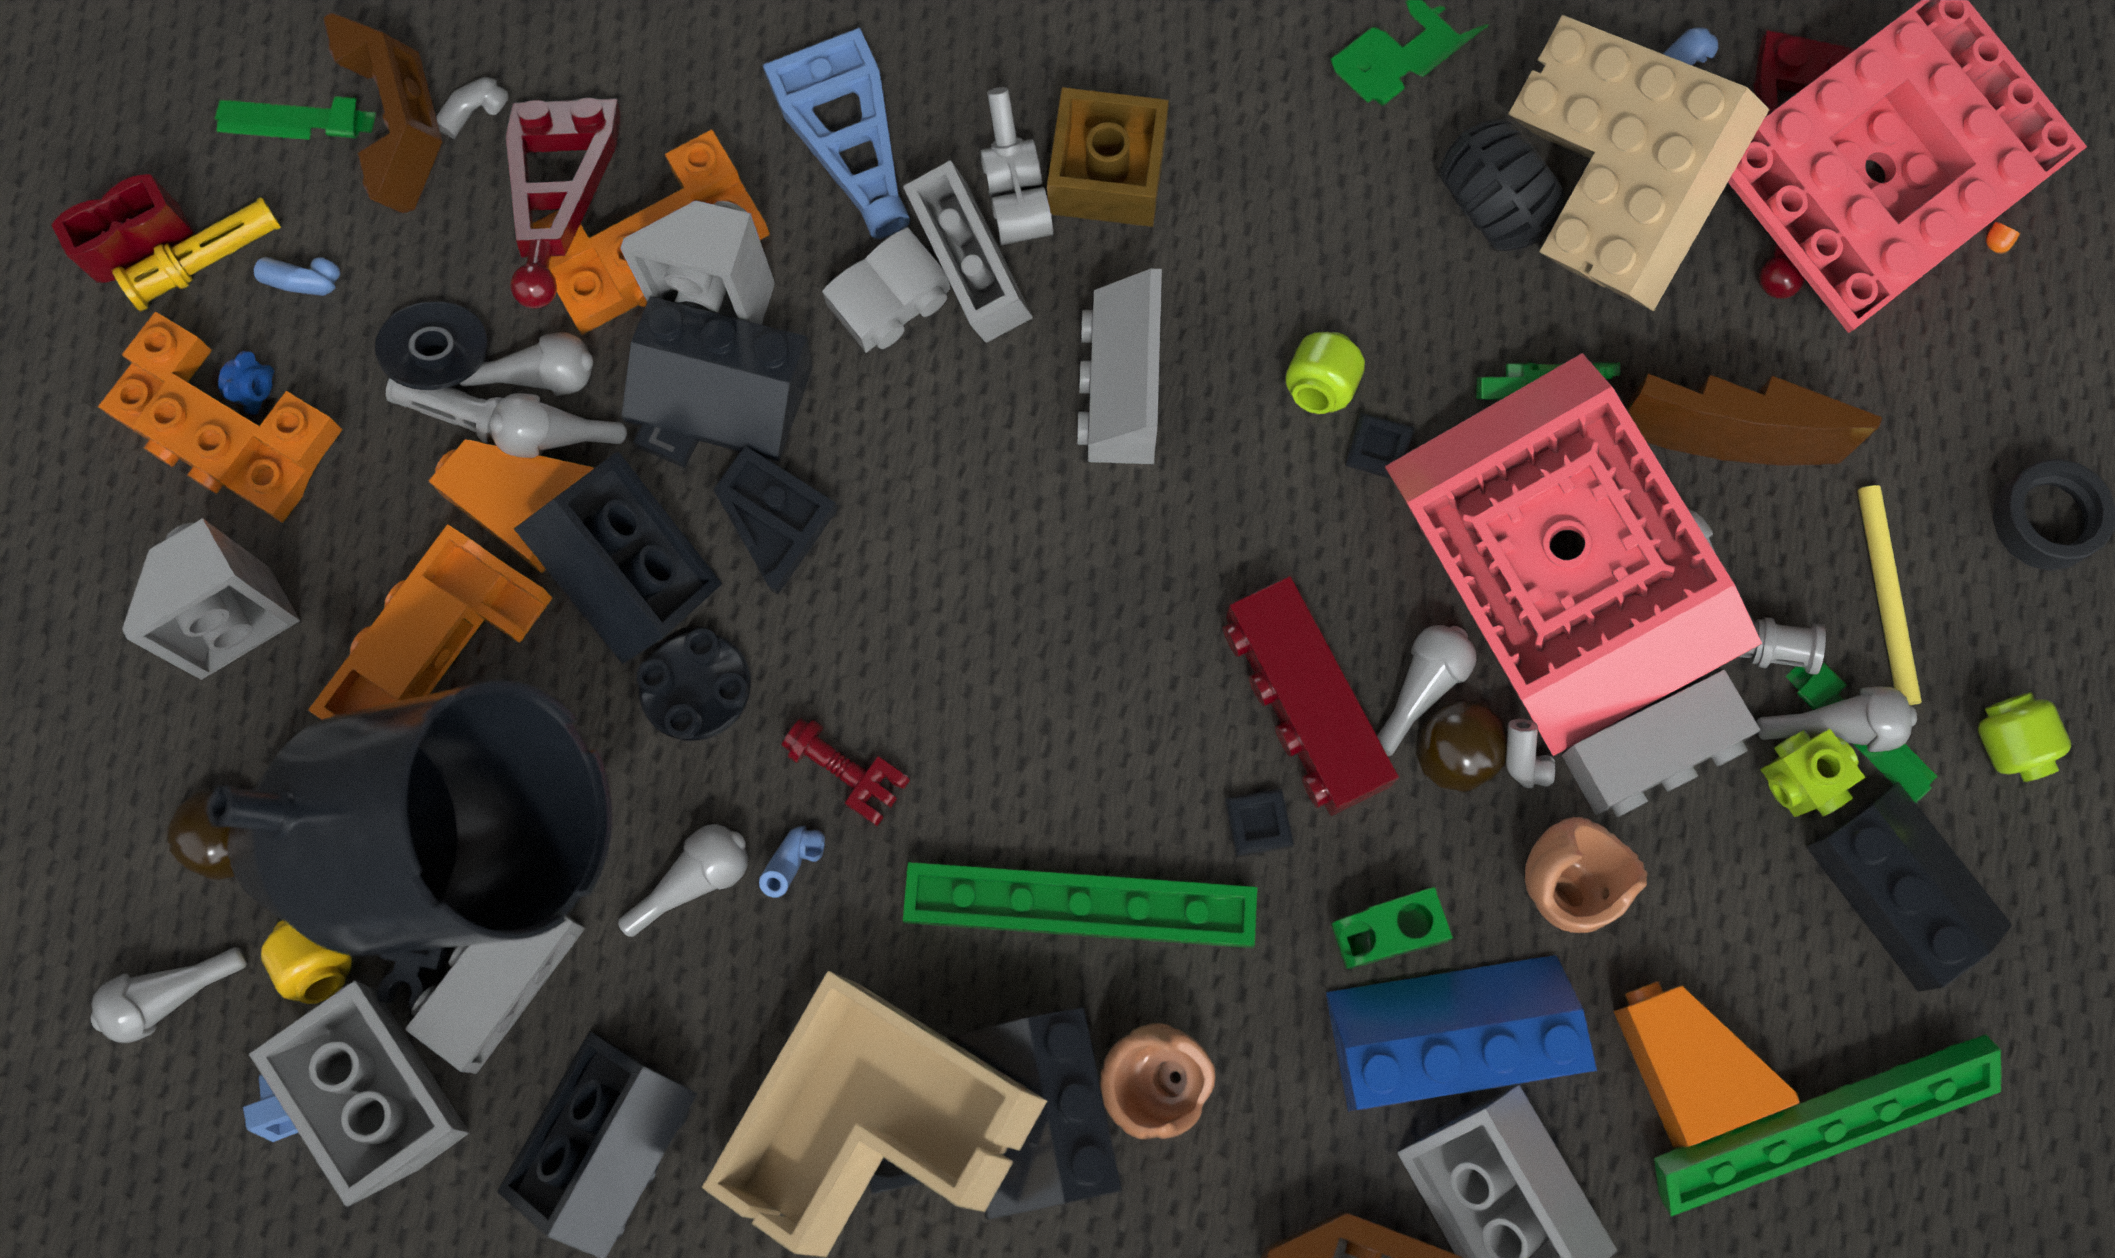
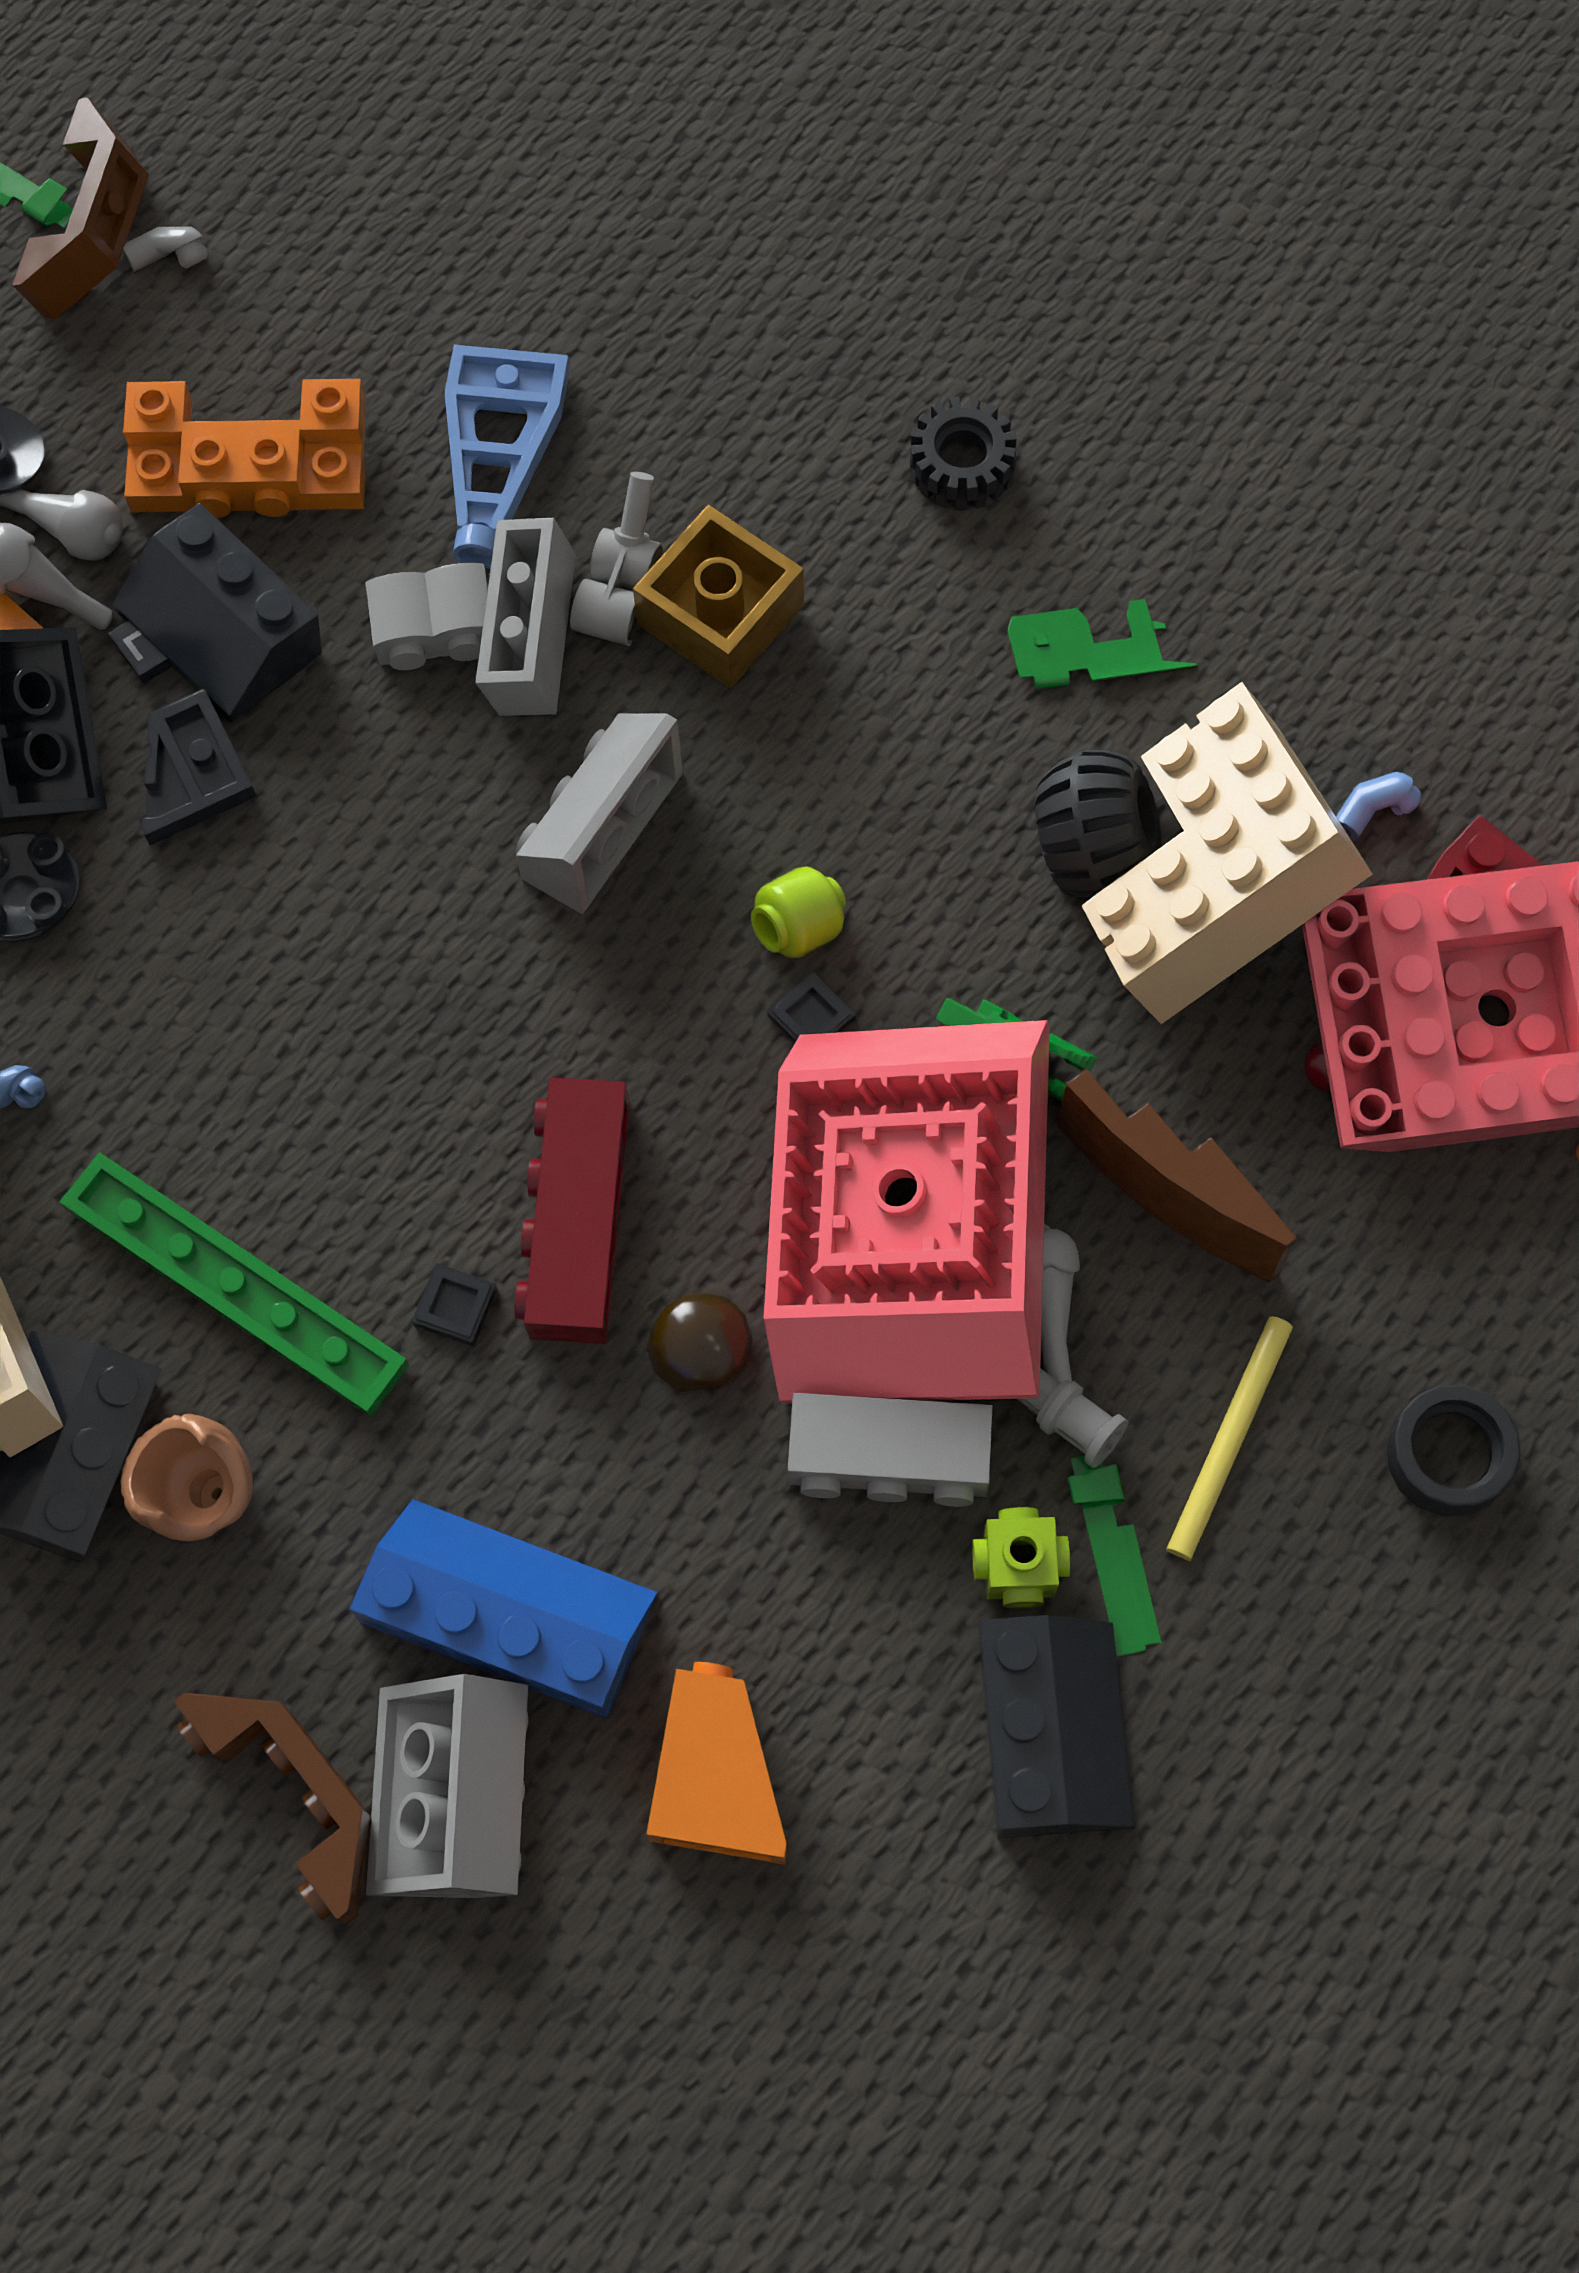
camera: 30 degrees right, 5 degrees down
(548, 128) = (210, 297): dark red plate -> none
(703, 260) = (262, 496): light grey slope -> none
(804, 740) = (82, 990): dark red hinge -> none
(1392, 929) = (511, 1473): green leg -> none
(1438, 662) = (724, 1248): light grey piece -> none
(1522, 758) = (743, 1389): light grey arm -> none
(1589, 868) = (733, 1512): nougat piece -> none
(1829, 1124) = (811, 1905): green plate -> none
(1874, 718) = (1118, 1541): light grey piece -> none
(2024, 736) = (1265, 1646): lime head -> none

